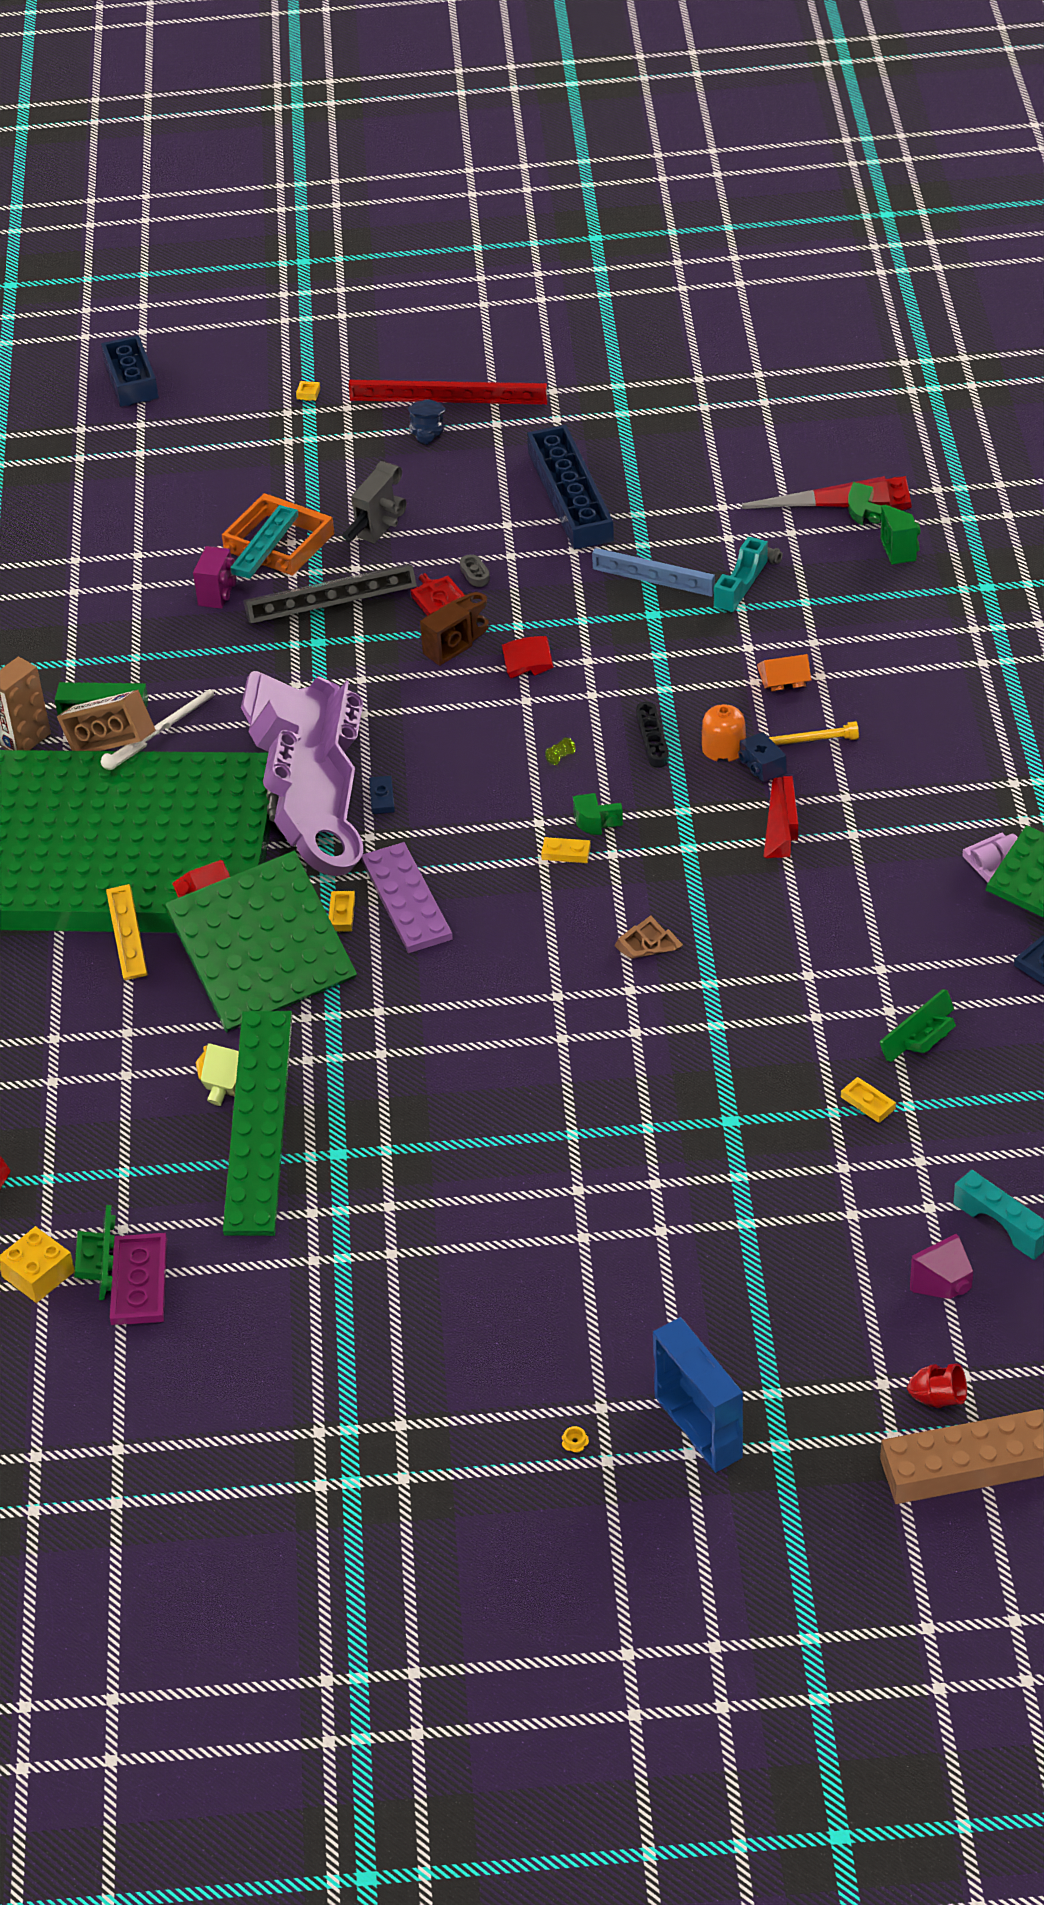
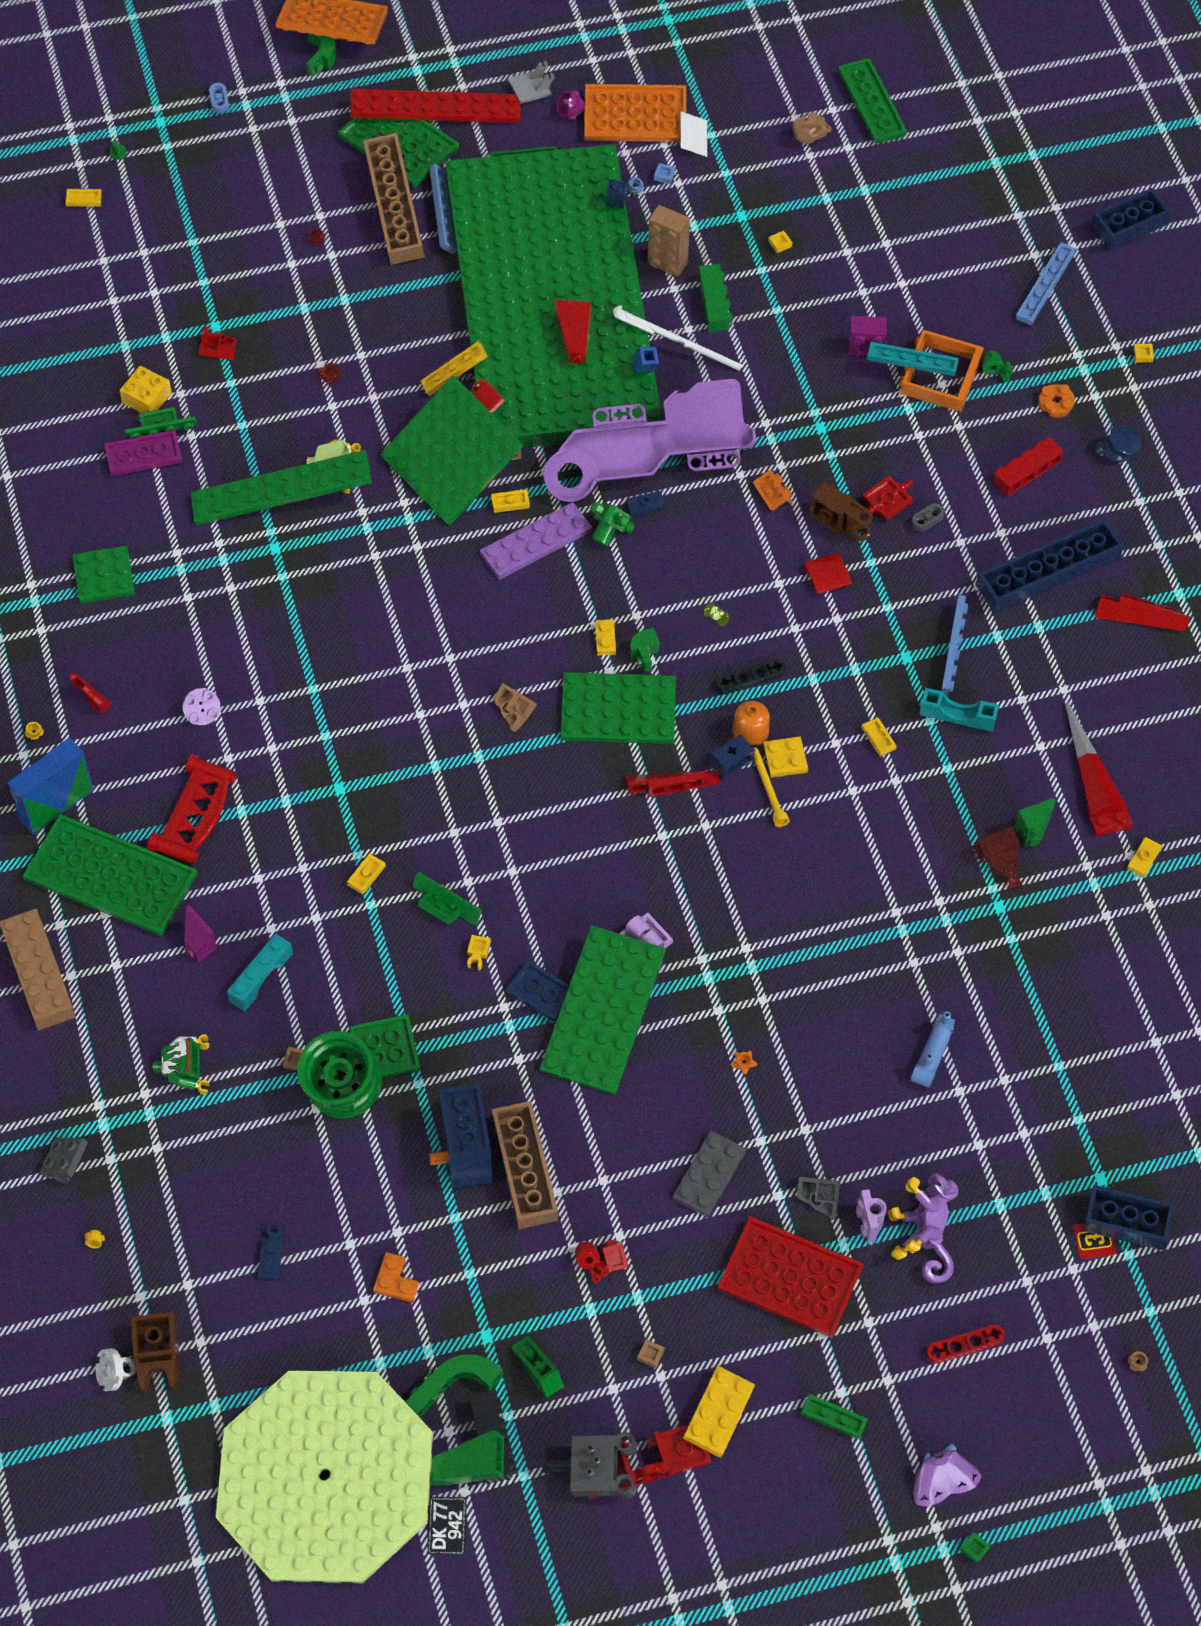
camera: 75 degrees right, 15 degrees up
(40, 637) = (780, 241): none -> yellow plate
(77, 1066) = (330, 373): none -> clear red plate
(107, 722) = (662, 301): medium nougat brick -> none
(120, 803) = (574, 325): none -> red slope
(187, 445) = (1045, 283): none -> medium blue plate
(194, 742) = (645, 359): none -> blue brick
(289, 490) = (993, 364): none -> green piece
(329, 593) = (869, 420): dark grey brick -> none
(329, 1342) = (103, 574): none -> green plate
(355, 458) = (1059, 392): none -> orange plate
(376, 505) = (978, 425): dark grey piece -> none
(399, 684) = (772, 490): none -> orange bracket
(406, 815) = (610, 520): none -> green piece
(431, 488) = (1027, 466): none -> red brick
(448, 391) = (1168, 460): red plate -> none
(538, 1362) = (93, 696): none -> red slope
(583, 1241) = (192, 708): none -> lavender plate
(640, 439) = (1141, 612): none -> red wedge
(669, 850) = (618, 708): none -> green plate
(758, 643) = (879, 736): none -> yellow plate
(767, 717) = (785, 757): none -> yellow plate
(774, 555) = (999, 733): dark grey pin -> none
(785, 671) = (843, 759): orange slope -> none
(787, 1295) = (201, 774): none -> red piece
(828, 1367) = (110, 875): none -> green plate
(861, 506) = (1074, 790): green brick -> none
(924, 569) = (1001, 854): none -> clear red brick
(939, 1385) = (93, 945): red helmet -> none
(944, 477) = (1144, 857): none -> yellow plate
(992, 1004) = (478, 949): none -> yellow plate

